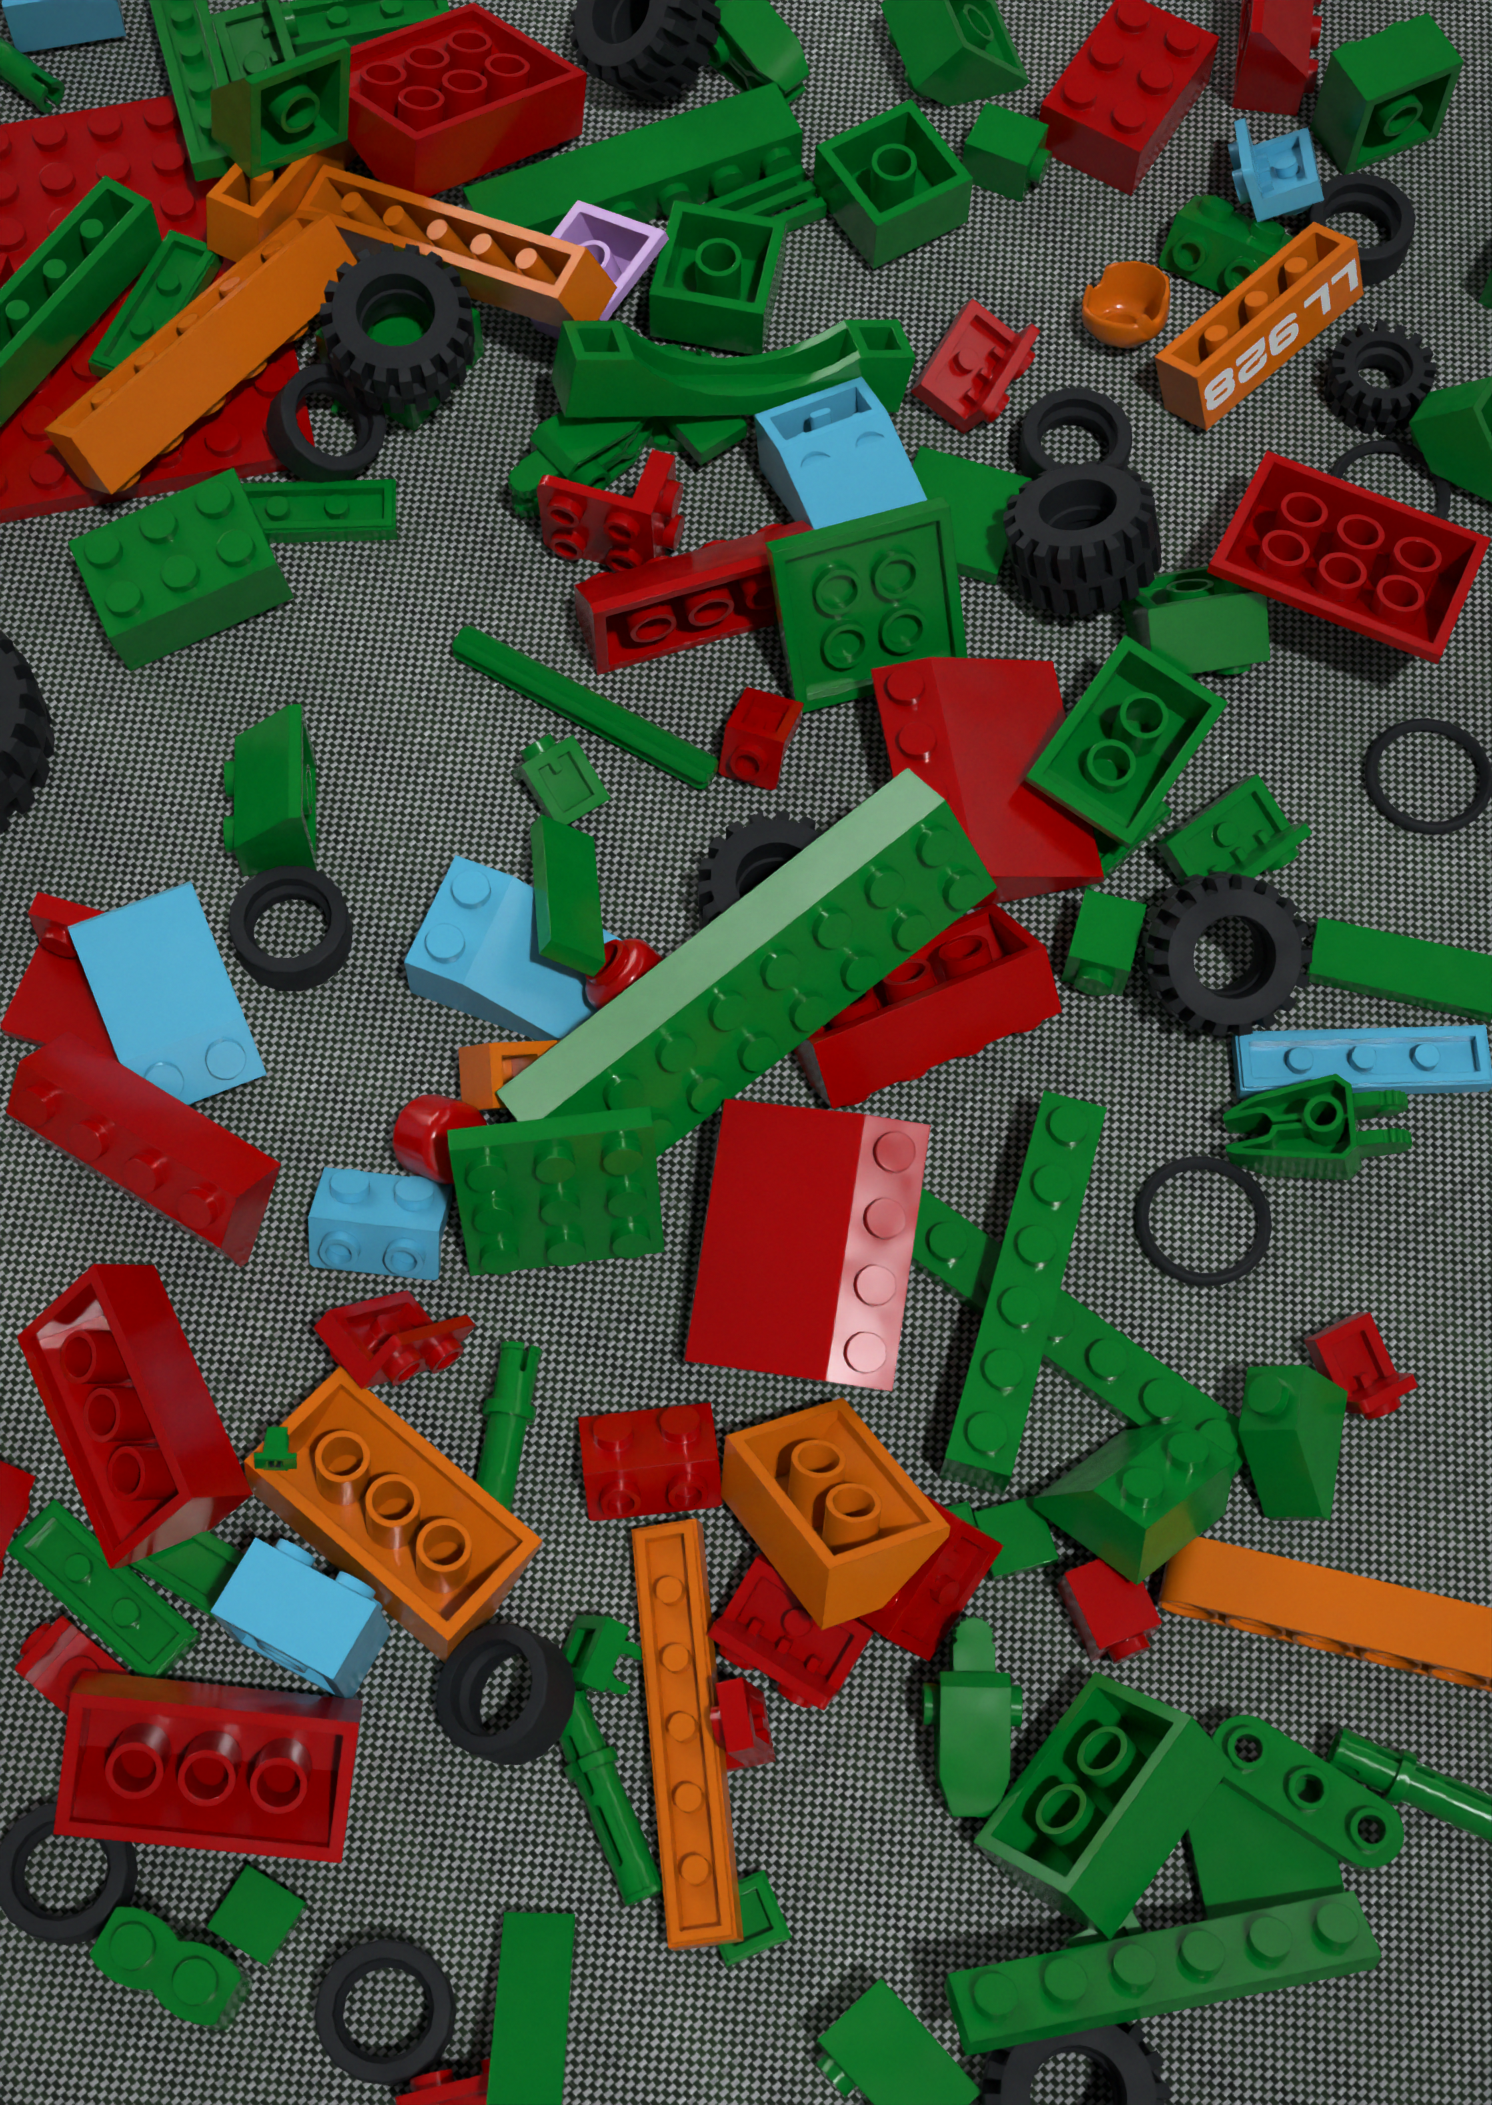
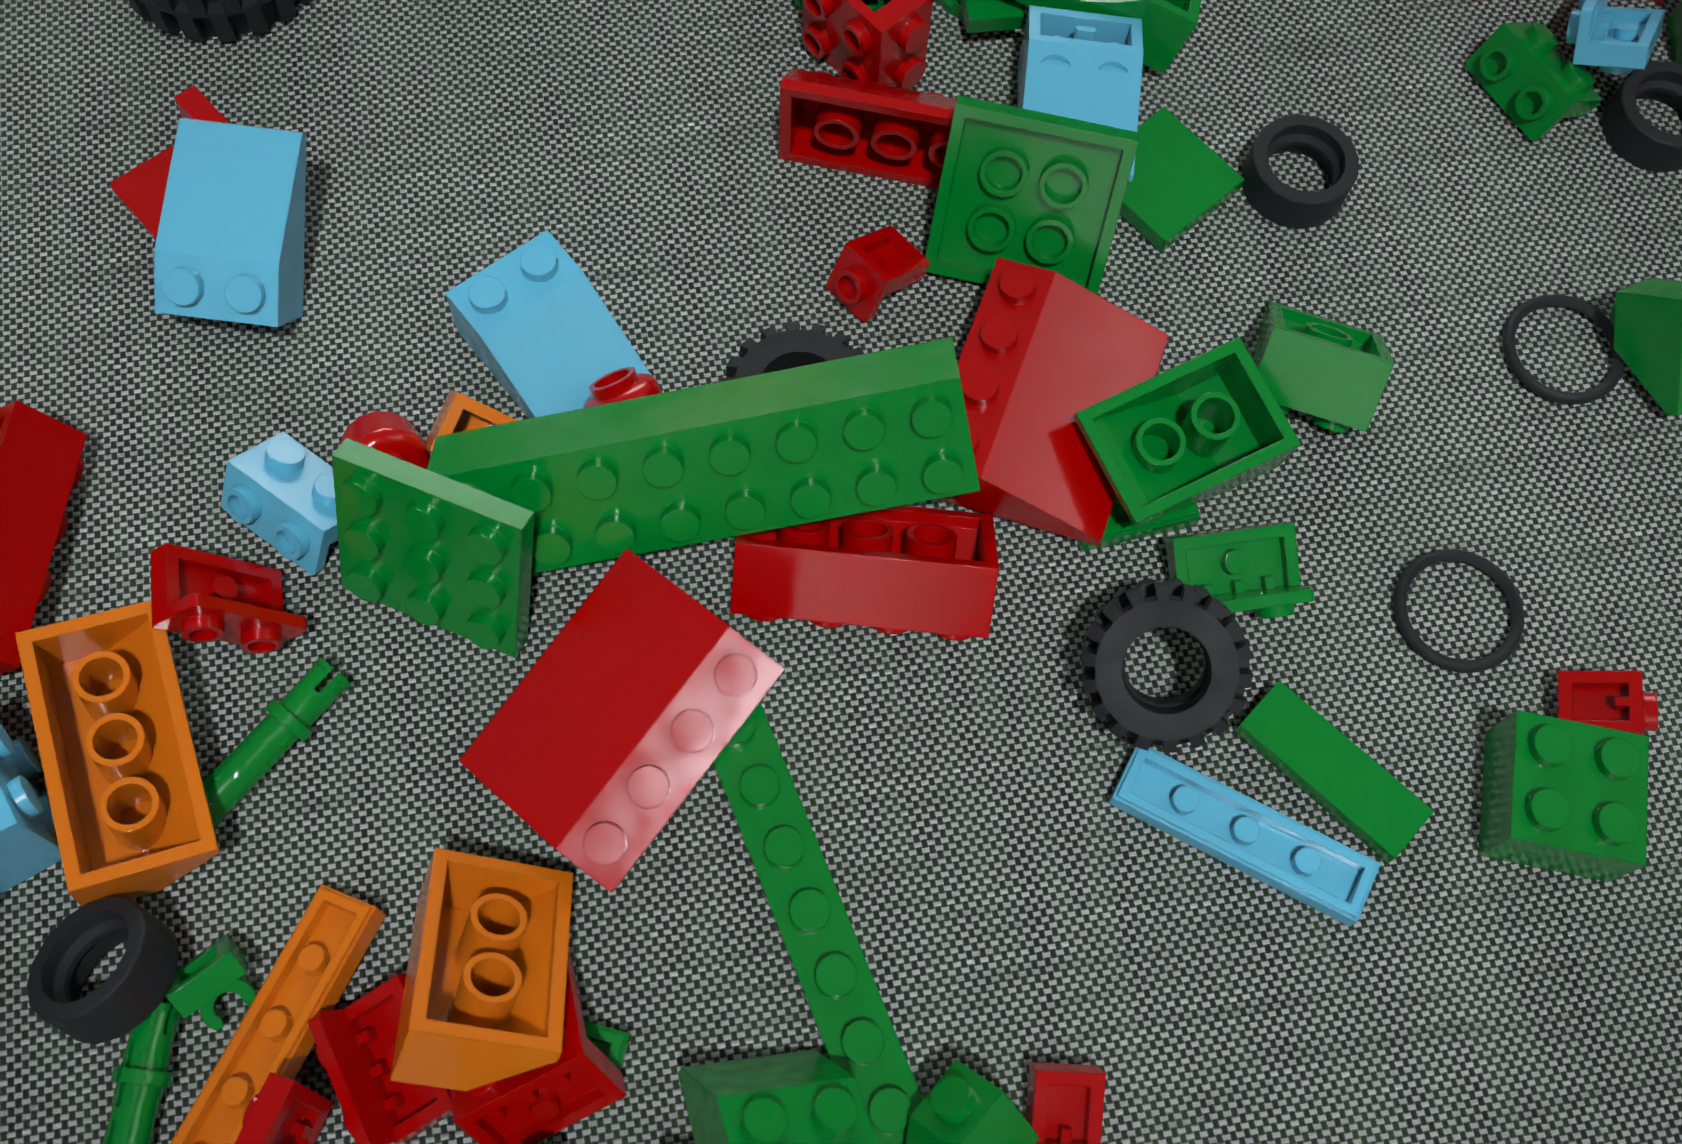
camera: 25 degrees right, 0 degrees up
(145, 1144) = (130, 329): red slope -> none
(273, 794) = (446, 116): green slope -> none
(276, 1451) = (42, 639): green piece -> none
(278, 886) = (385, 188): black tyre -> none
(560, 778) = (685, 221): green bracket -> none
(567, 896) = (618, 312): green tile -> none
(585, 707) = (749, 178): green axle -> none
(650, 1462) = (374, 831): red bracket -> none
(974, 367) = (1246, 64): red bracket -> none
(1023, 1294) = (776, 883): green arch -> none
(1023, 1534) = (652, 1093): green tile -> none
(1083, 537) = (1256, 243): black tyre -> none
(1103, 944) = (1064, 598): green brick -> none
(1127, 304) = (1416, 79): orange hair -> none
(1178, 1272) = (994, 959): black tyre -> none
(1259, 325) = (1525, 148): orange brick -> none
(1314, 1129) = (1158, 871): green hinge -> none
(1350, 556) = (1493, 377): red slope -> none
(1382, 351) = (1625, 224): black tyre -> none

